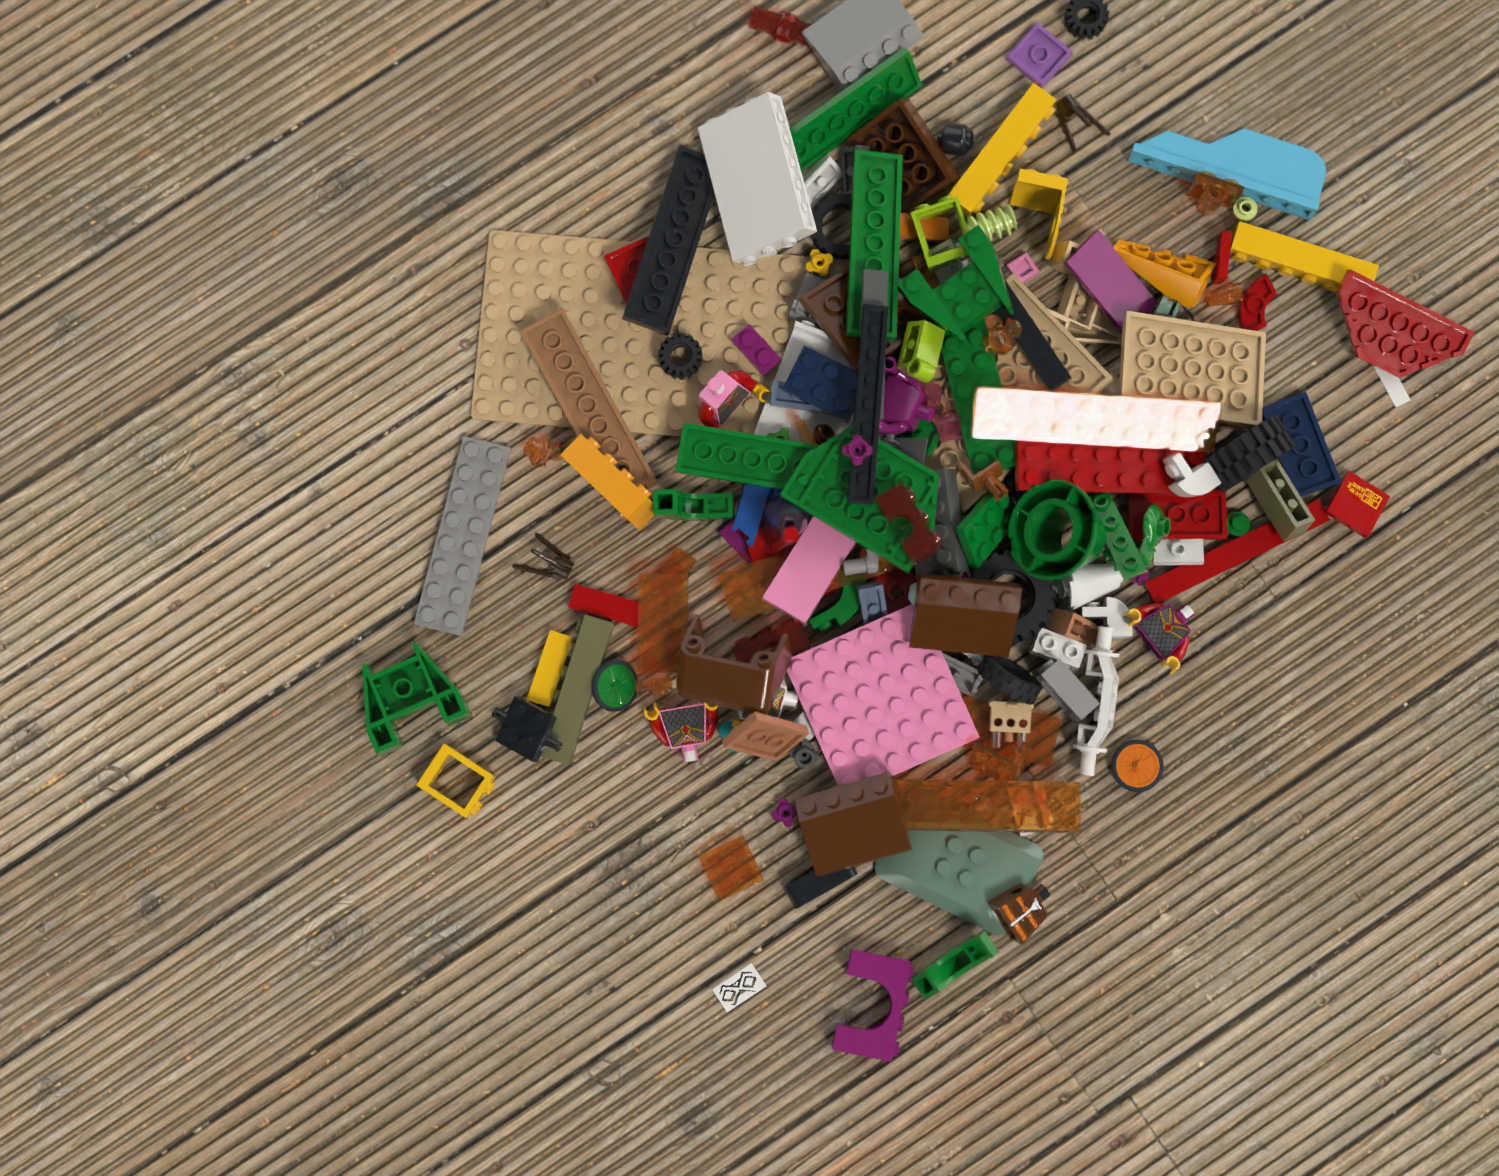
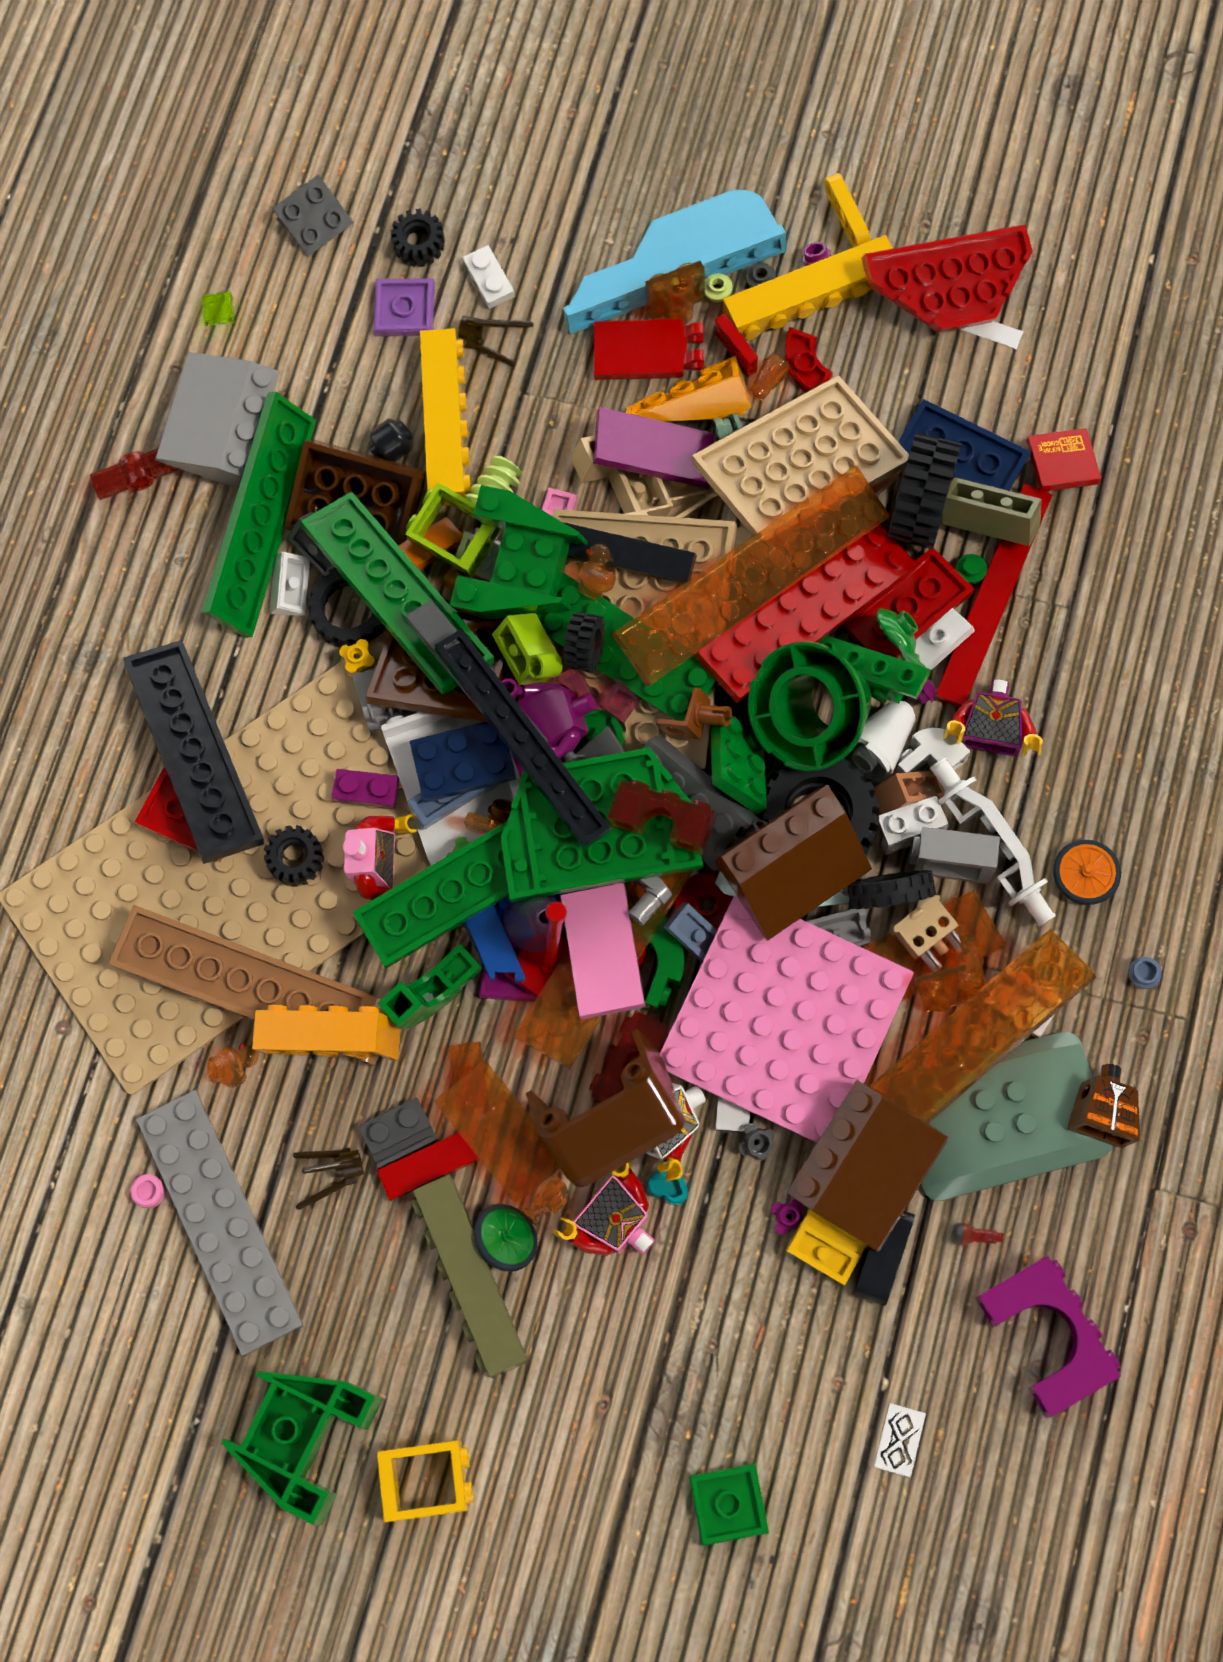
camera: 35 degrees left, 10 degrees down
(436, 483) = (148, 1191): none -> bright pink tile
(526, 729) = (451, 1361): black plate -> none
(550, 668) = (423, 1279): yellow tile -> none
(605, 572) = (398, 1133): none -> dark grey plate
(613, 939) = (728, 1504): none -> green tile
(731, 868) = (784, 1321): clear orange plate -> none
(757, 179) = (227, 625): white panel -> none
(765, 736) = (702, 1153): nougat plate -> none
(789, 848) = (826, 1247): none -> yellow plate
(864, 450) = (551, 778): magenta plate -> none
(877, 909) = (965, 1234): none -> clear red piece
(953, 964) = (1091, 1218): green arch -> none
(956, 376) = (584, 642): none -> black tyre
(1043, 194) = (519, 420): yellow piece -> none
(1108, 79) = (488, 277): none -> white plate
(1116, 853) = (1145, 972): none -> sand blue plate
(1164, 211) = (646, 349): none -> red tile
(1190, 481) = (892, 560): white brick -> none
(1270, 224) = (760, 268): none -> dark grey plate
(1325, 238) = (815, 252): none -> magenta plate
(1371, 227) = (846, 210): none -> yellow beam

